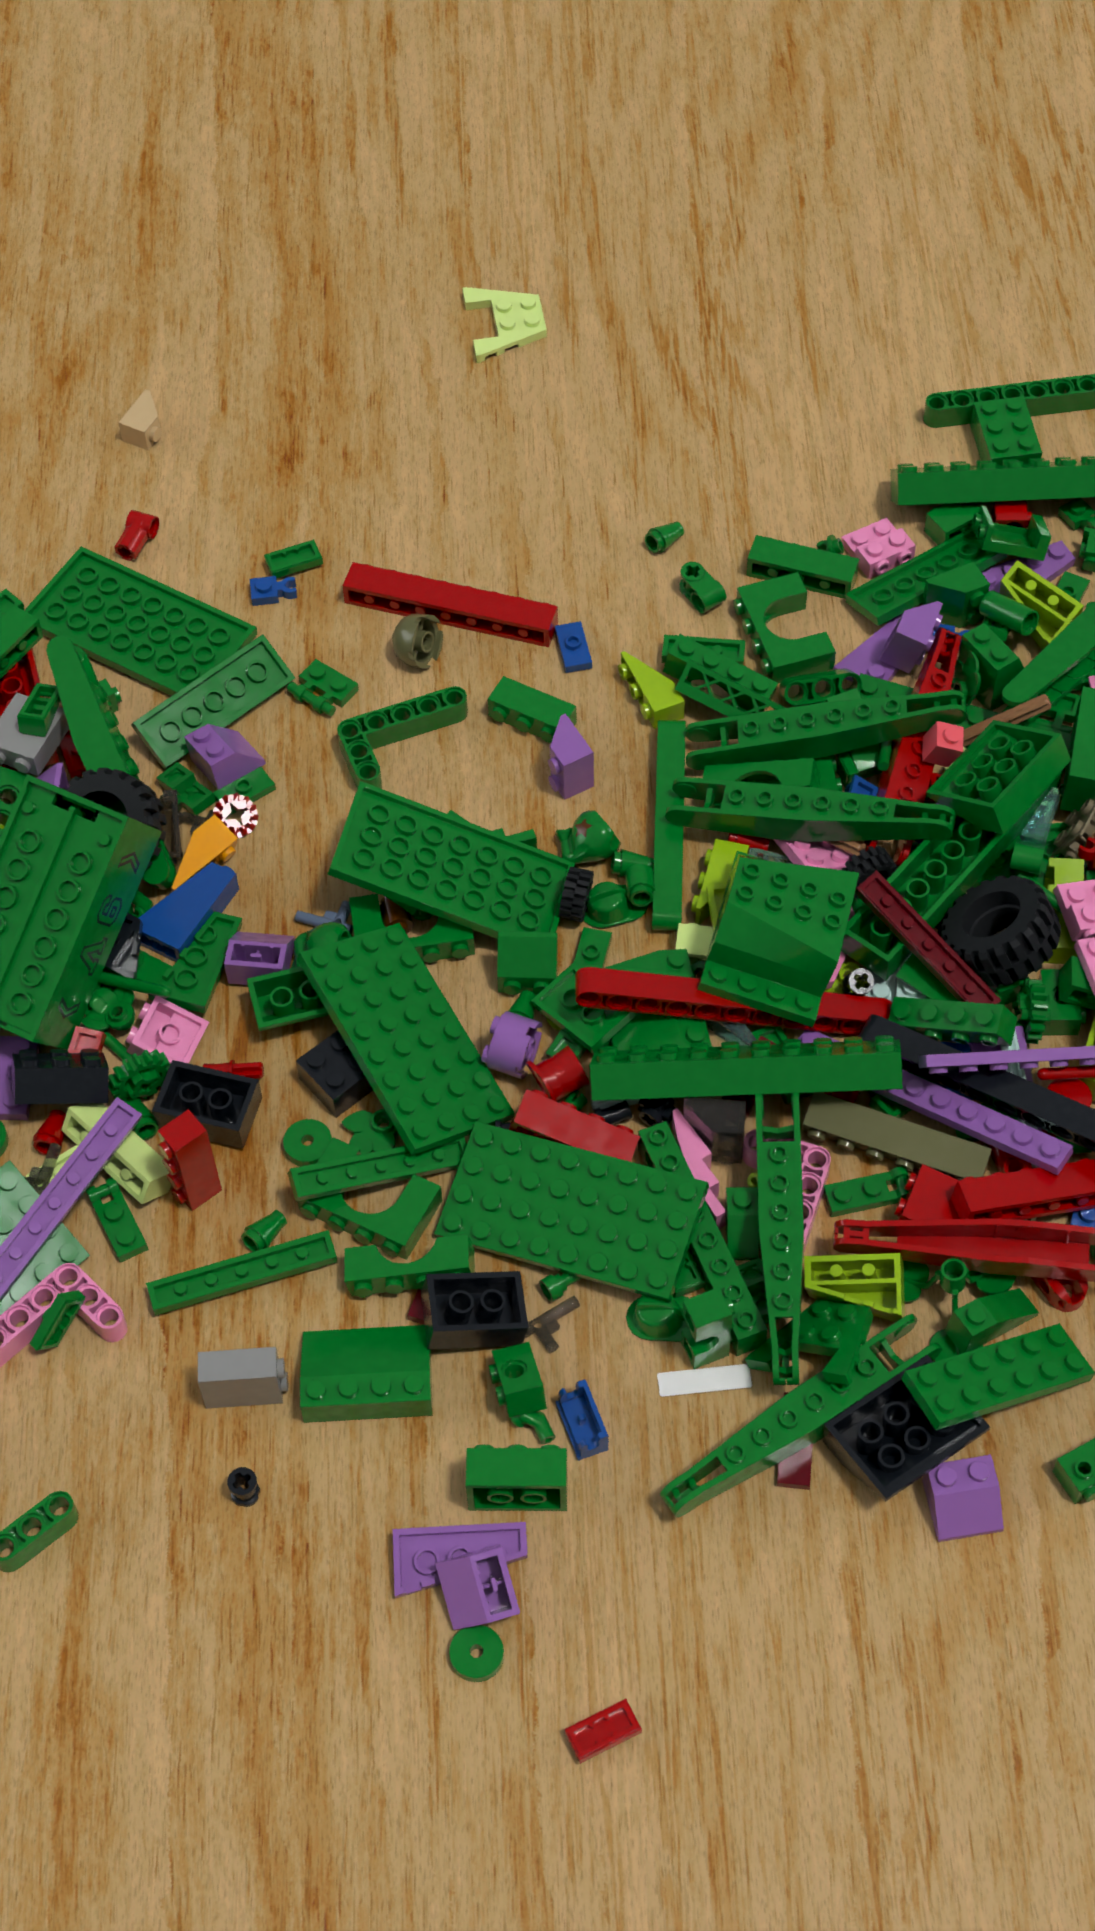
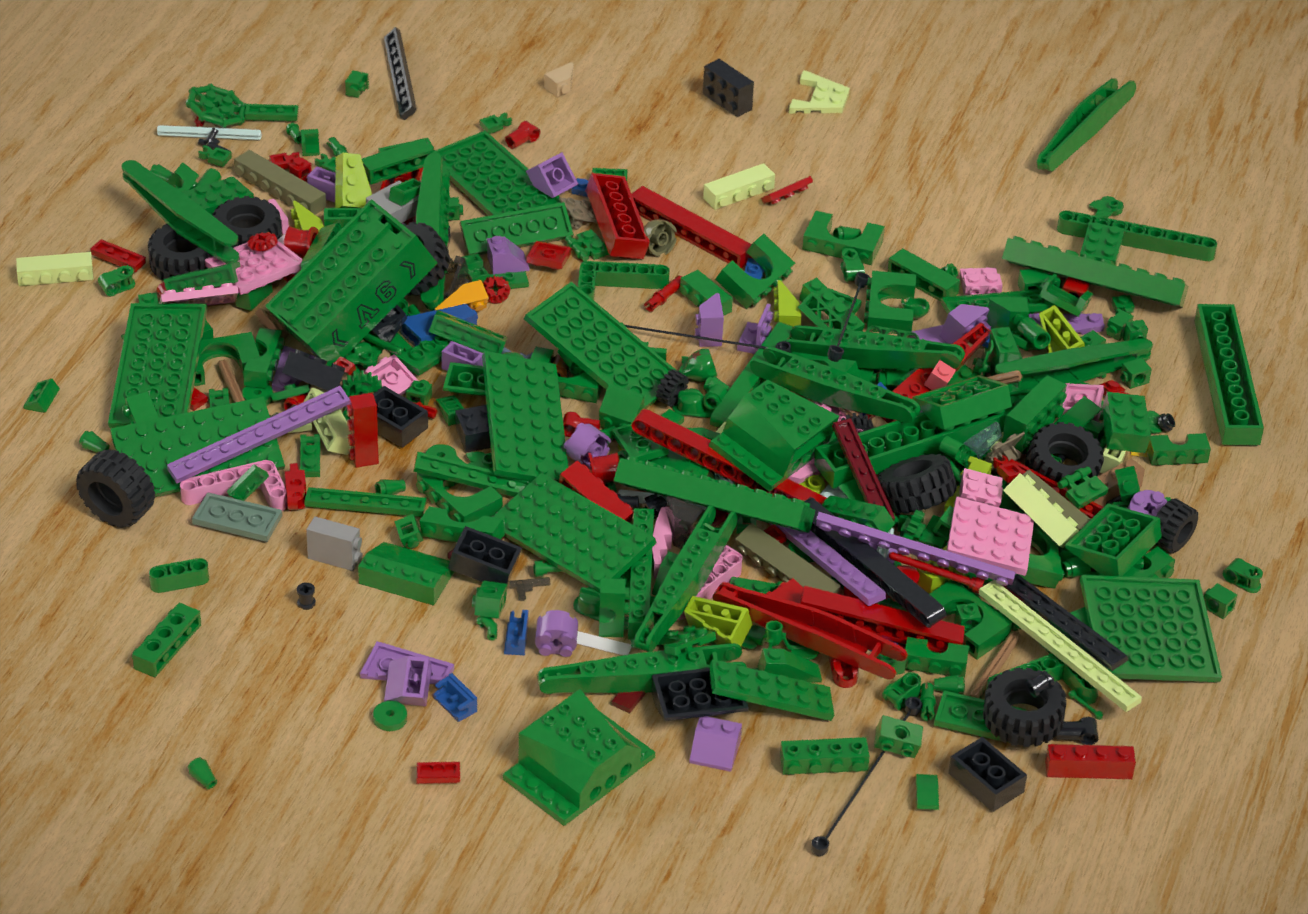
camera: 20 degrees right, 15 degrees down
(31, 1120) = (291, 390): none -> green plate
(66, 1381) = (237, 517): none -> sand green plate
(74, 1717) = (166, 639): none -> green brick
(86, 529) = (493, 123): none -> green plate
(127, 1291) = (295, 487): none -> red piece
(220, 592) = (552, 176): none -> medium lavender slope
(221, 1042) = (420, 389): none -> green brick
(242, 913) = (467, 333): none -> green fence
(255, 1897) = (201, 771): none -> green cone
(280, 727) = (548, 255): none -> red plate
(285, 635) = (578, 211): none -> dark tan hinge
(285, 1068) = (447, 407): none -> green slope
(325, 1298) = (410, 535): none -> green brick
(345, 626) = (617, 216): none -> red brick
(382, 355) = (728, 87): none -> black brick
(471, 738) = (660, 297): none -> red pin
(477, 1007) = (572, 419): none -> red piece
(480, 511) = (739, 186): none -> yellowish green brick
(516, 1478) = (460, 641): green brick -> none
(547, 493) = (787, 191): none -> red plate
(556, 1579) = (455, 697): none -> blue hinge
(604, 629) = (749, 289): none -> green arch
(635, 561) = (819, 240): none -> green arch
(635, 752) = (756, 333): none -> medium lavender bracket
(645, 1402) = (556, 633): none -> medium lavender brick
(691, 767) = (782, 345): none -> black piece
(790, 1622) = (574, 758): none -> green wedge
(793, 763) = (835, 352): none -> black piece
(821, 620) = (920, 306): none -> green hair
(866, 985) = (815, 479): bush -> none
(874, 245) = (1085, 122): none -> green piece
(971, 365) = (1107, 206): none -> green plate

